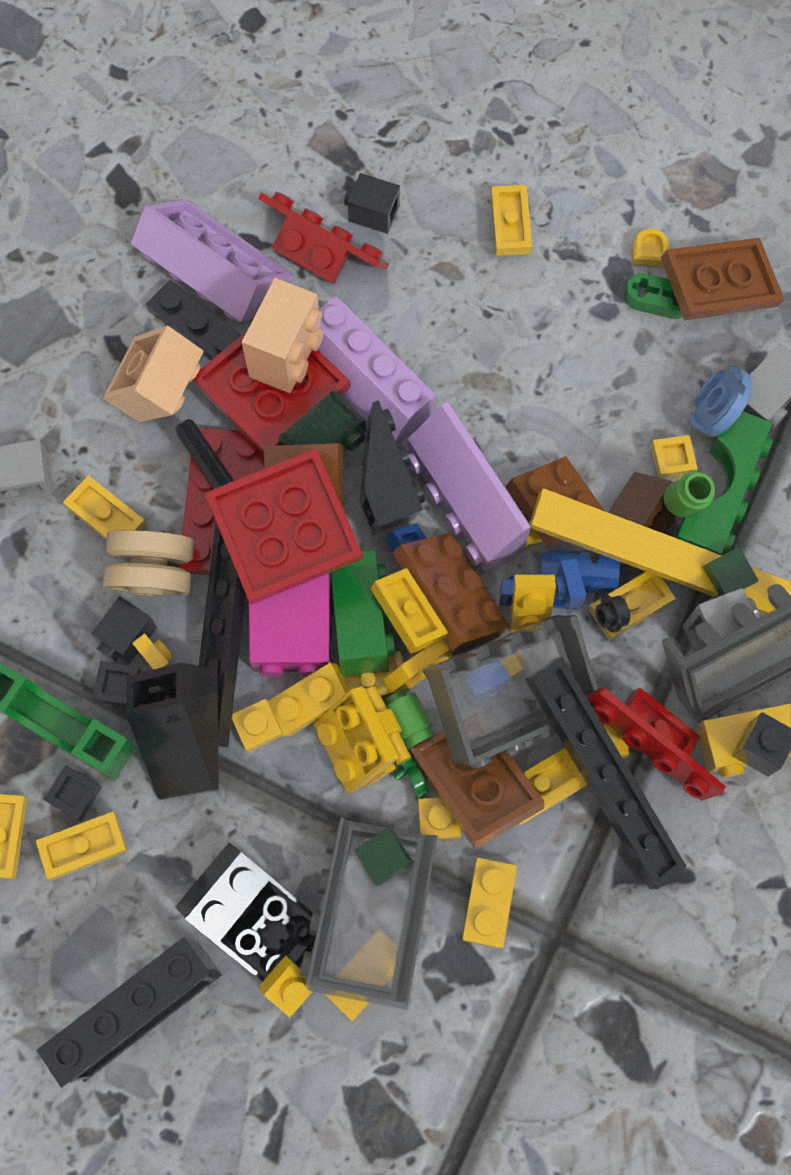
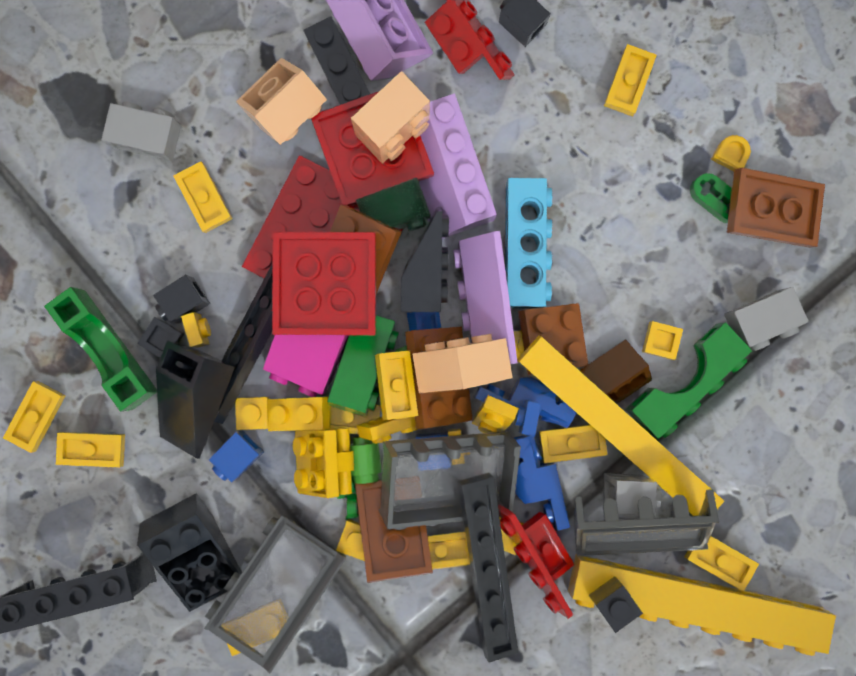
camera: 20 degrees right, 15 degrees up
(73, 793) = (97, 408): black plate -> none
(149, 560) = (215, 259): tan wheel -> none
(203, 454) = (296, 191): black axle -> none
(258, 779) = (235, 456): none -> blue brick
(285, 987) = (192, 613): yellow plate -> none
(384, 857) = (299, 560): dark green tile -> none
(463, 366) = (532, 193): none -> medium azure brick
(470, 552) = (462, 364): none -> light nougat brick
(489, 903) = (365, 615): yellow plate -> none
(612, 613) = (552, 449): black plate -> none
(620, 658) = (540, 482): none -> blue plate
(689, 494) = (655, 386): bright green brick -> none
(721, 401) = (721, 315): medium blue tile -> none
(730, 572) = (656, 459): dark green tile -> none

